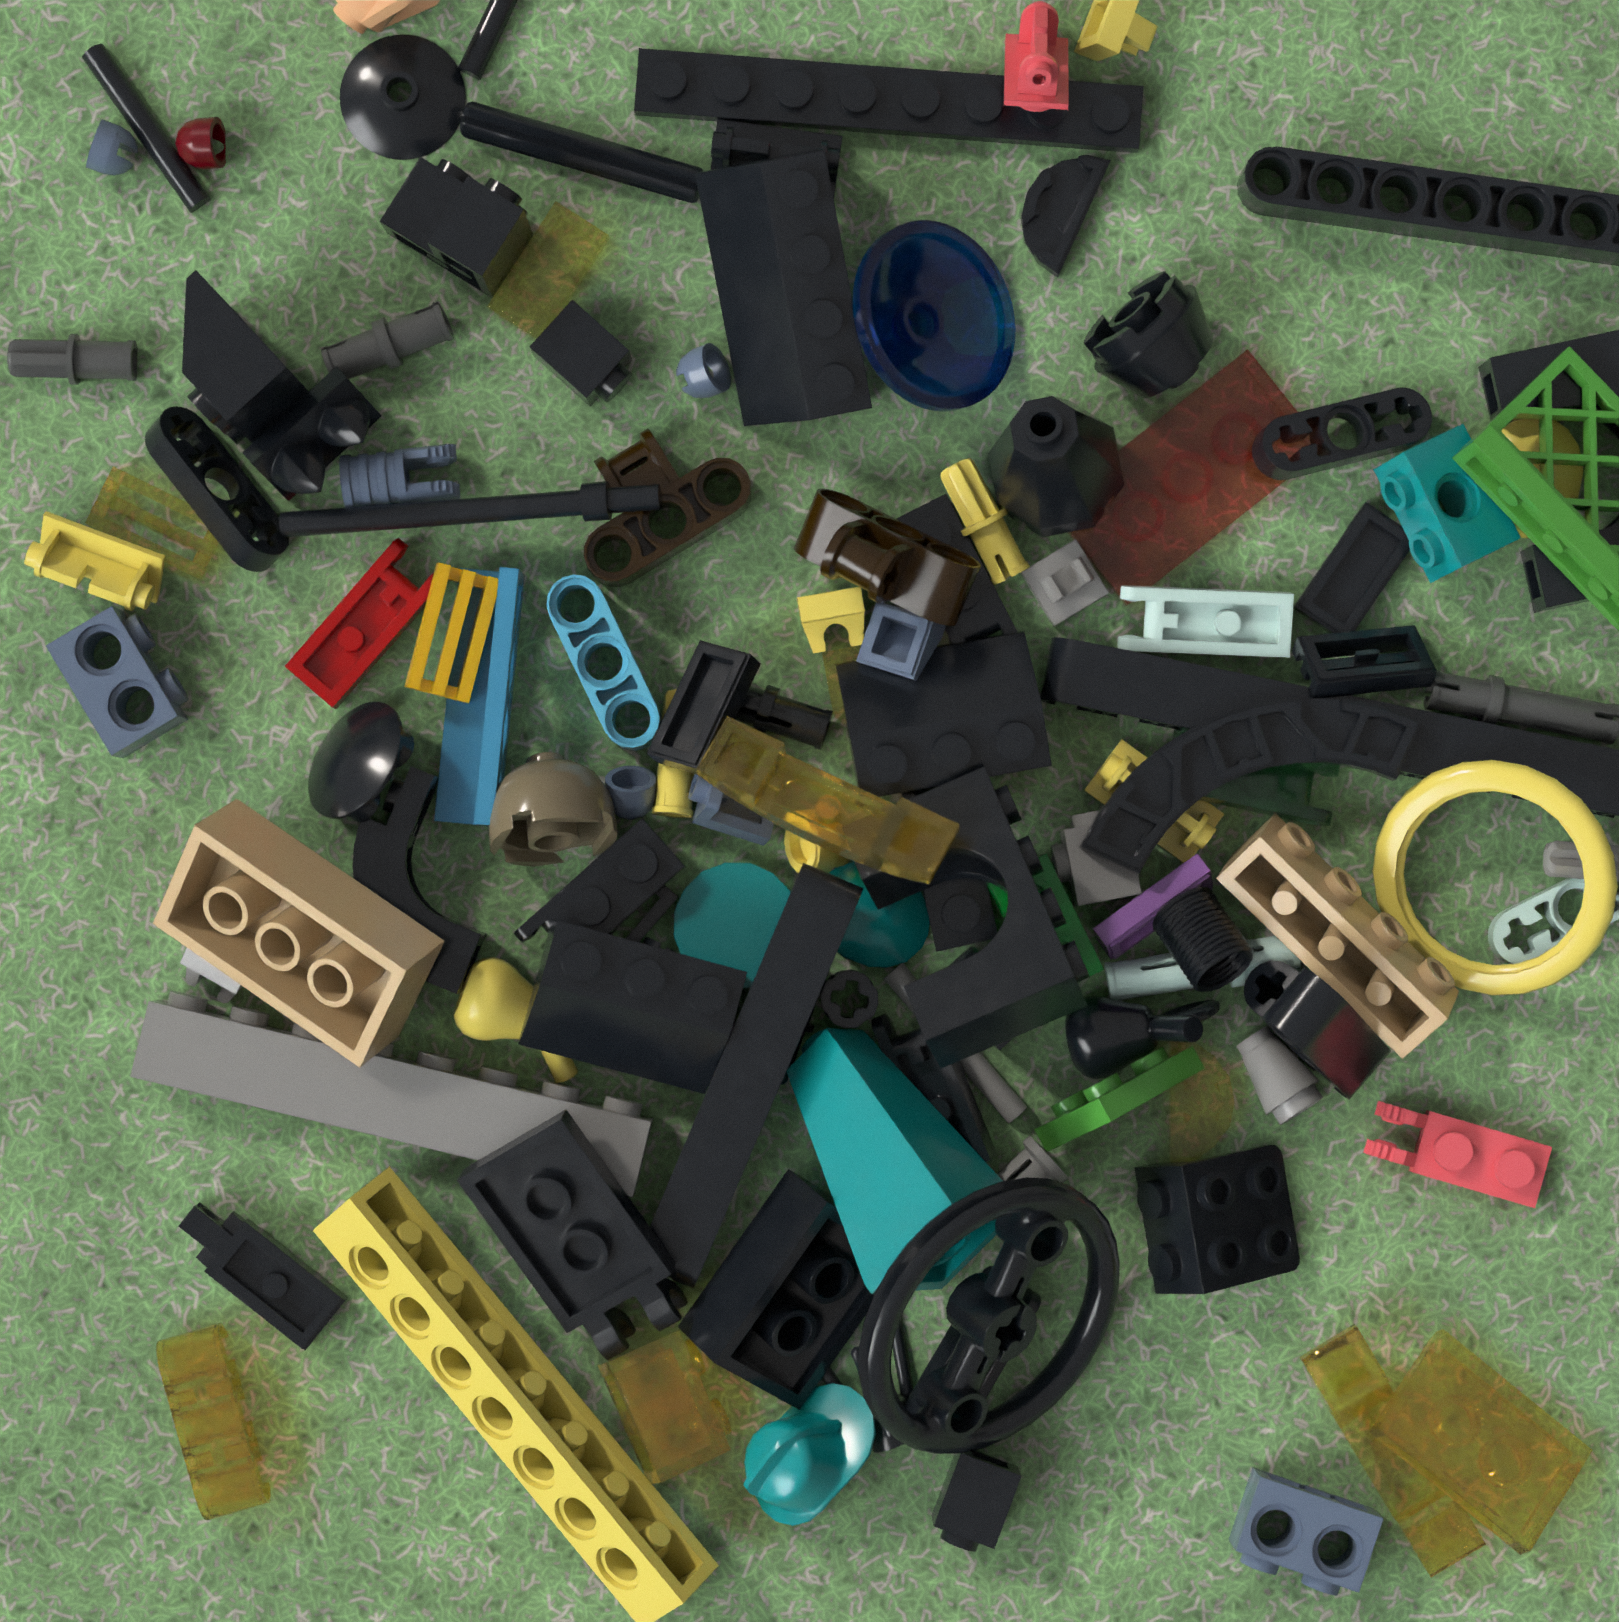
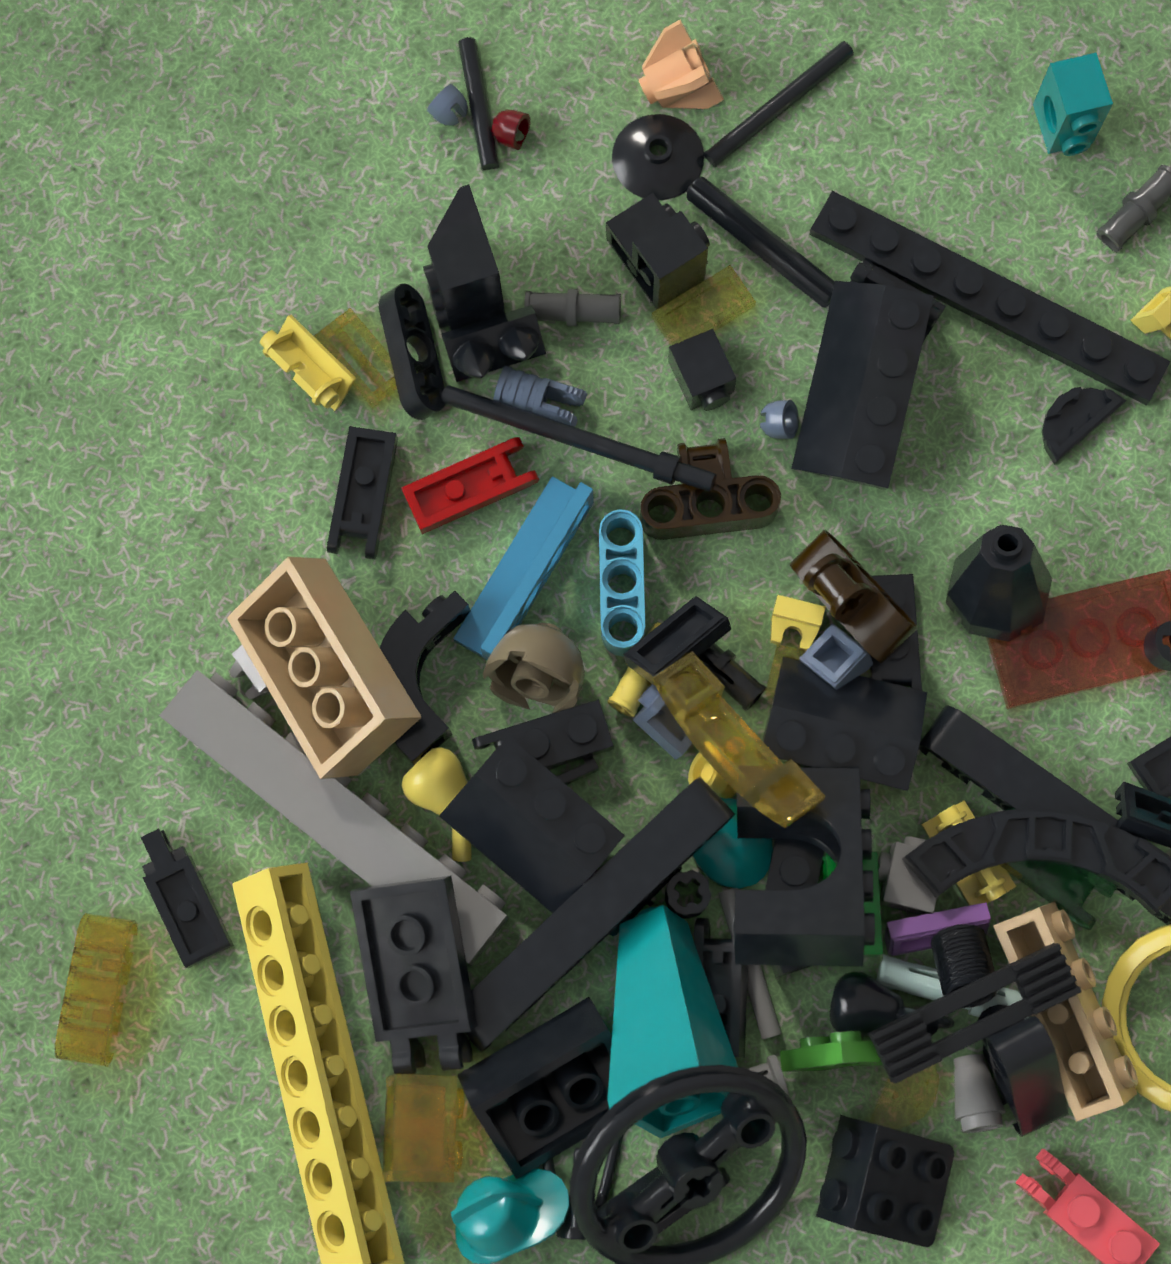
camera: 30 degrees right, 10 degrees down
(72, 359) = (358, 228): dark grey axle -> none
(107, 691) = (274, 450): sand blue brick -> none
(238, 686) = (363, 488): none -> black hinge
(358, 762) = (420, 573): black dish -> none
(466, 580) = (552, 483): yellow tile -> none
(631, 791) = (599, 680): sand blue hinge -> none
(730, 916) = (629, 794): teal tile -> none
(957, 312) = (958, 446): clear blue dish -> none
(983, 520) = (931, 603): light yellow axle -> none
(1037, 62) = (1103, 313): coral hinge -> none
(1064, 583) = (970, 673): light grey tile -> none
(1153, 337) = (1107, 529): black cone -> none
(1211, 621) = (1066, 745): light aqua hinge -> none
(1295, 920) = (1042, 982): none -> black container

